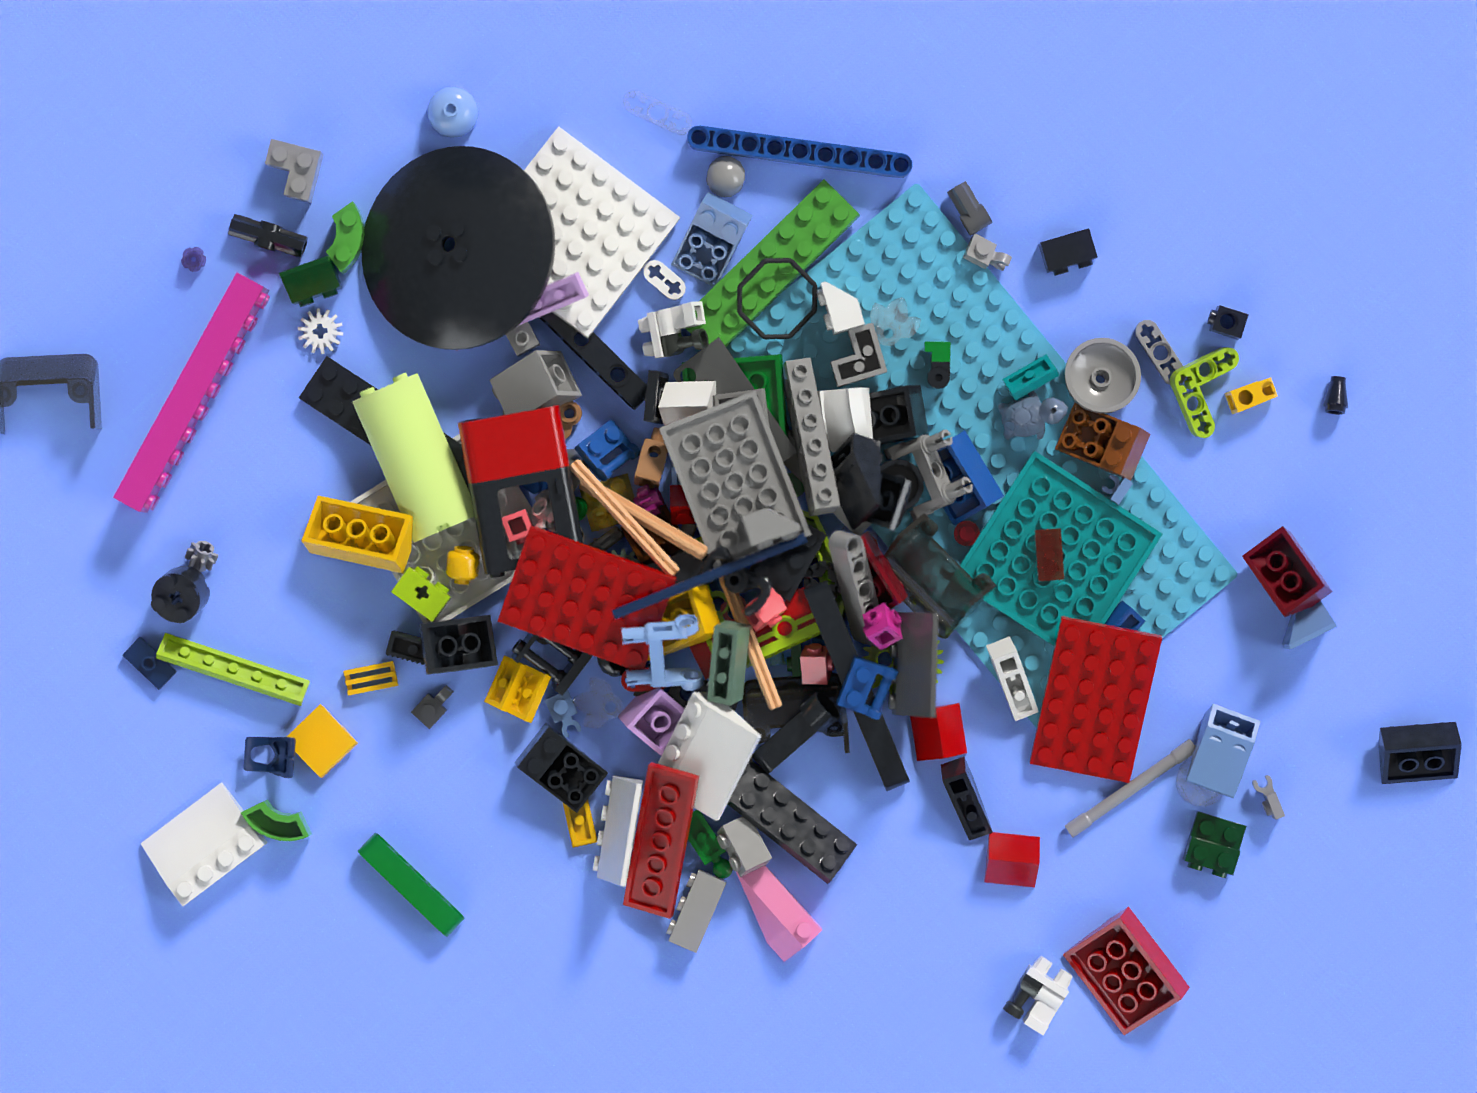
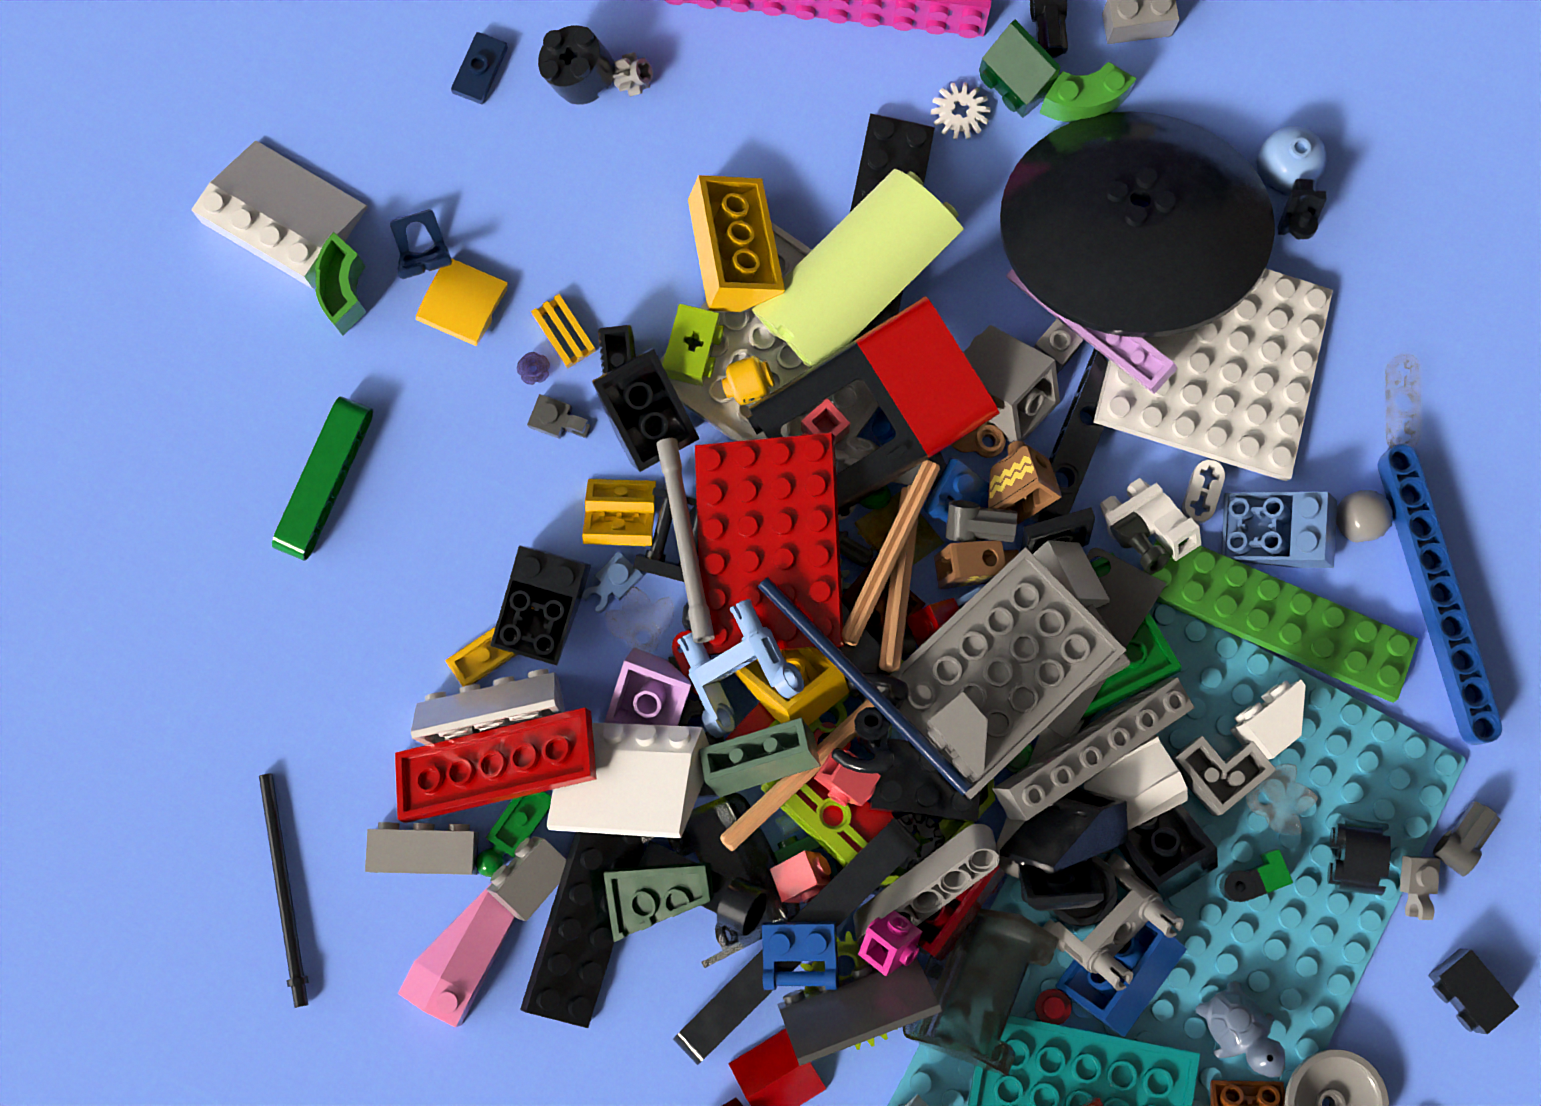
camera: 70 degrees right, 10 degrees down
(233, 669) = (509, 164): lime plate -> none
(383, 709) = (529, 360): none -> clear purple plate
(495, 126) = (1302, 210): none -> black hips
(611, 407) = (1022, 482): none -> medium nougat torso
(614, 664) = (698, 610): none -> light grey piece
(624, 454) = (970, 522): none -> dark grey piece
(649, 499) = (925, 579): magenta gear -> none
(748, 1025) = (297, 979): none -> black bar
(788, 766) = (654, 893): none -> wing
(804, 320) = (1290, 663): black piece -> none
(951, 290) = (1360, 856): none -> black brick
(1030, 377) = (1292, 1009): teal plate -> none

